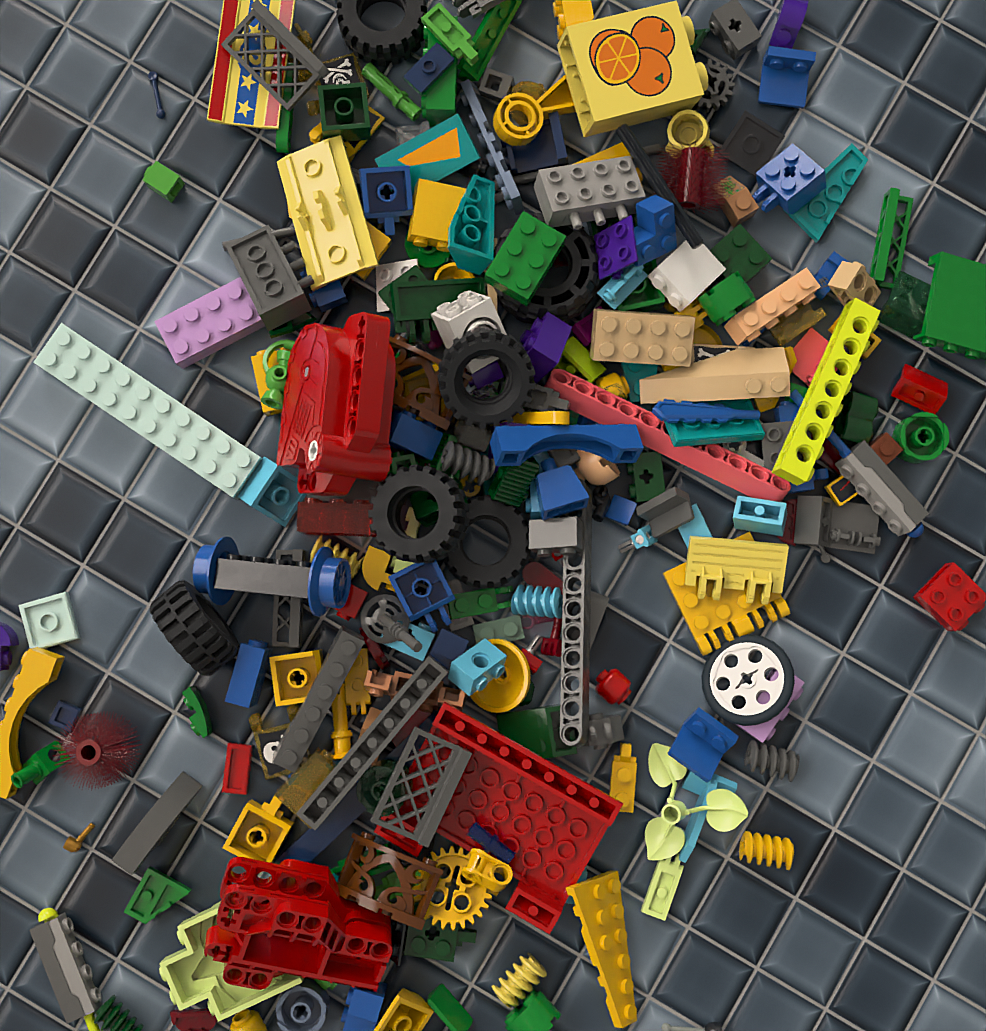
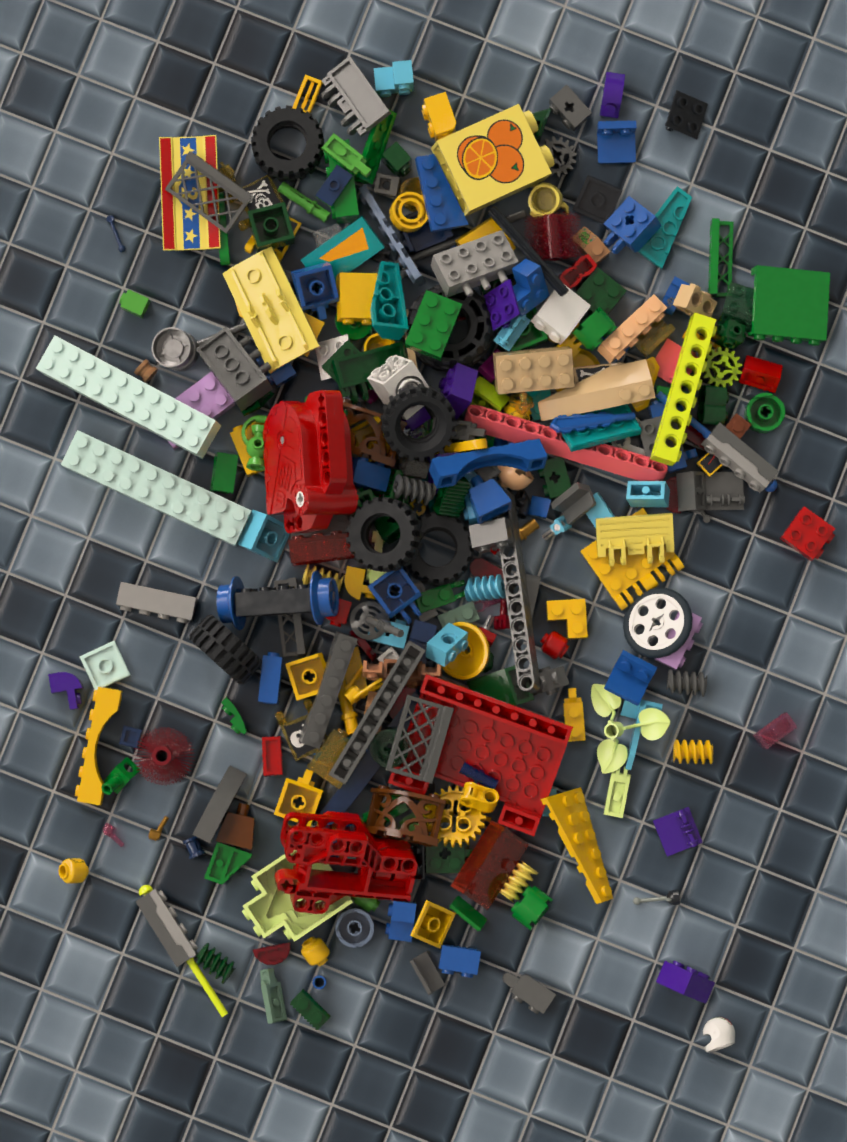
camera: 10 degrees left, 0 degrees up
(15, 831) = (108, 830): none -> clear pink hand
(117, 874) = (194, 847): none -> dark blue bush
(125, 552) = (156, 601): none -> light grey brick
(131, 292) = (128, 397): none -> light aqua brick
(162, 265) = (146, 371): none -> medium nougat wheel
(177, 855) = (238, 828): none -> reddish brown torso
(200, 242) = (175, 349): none -> flat silver wheel
(237, 405) = (224, 473): none -> green hinge
(351, 709) = (354, 694): none -> yellow plant
(404, 665) = (389, 654): none -> white tile
(486, 958) = (489, 865): none -> clear red brick
(513, 55) = (397, 160): none -> dark green brick
(557, 107) = (439, 200): none -> blue wing
(602, 535) = (528, 528): none -> pearl gold pin
(622, 380) = (523, 405): none -> clear yellow piece
(644, 652) = (573, 612): none -> yellow brick
(718, 224) = (581, 268): none -> red brick
(731, 947) = (677, 831): none -> dark purple hinge
(874, 59) = (686, 115): none -> black hinge
(875, 841) = (775, 731): none -> clear pink brick
(884, 376) = (725, 355): none -> lime gear
(892, 334) = (730, 334): none -> dark green brick

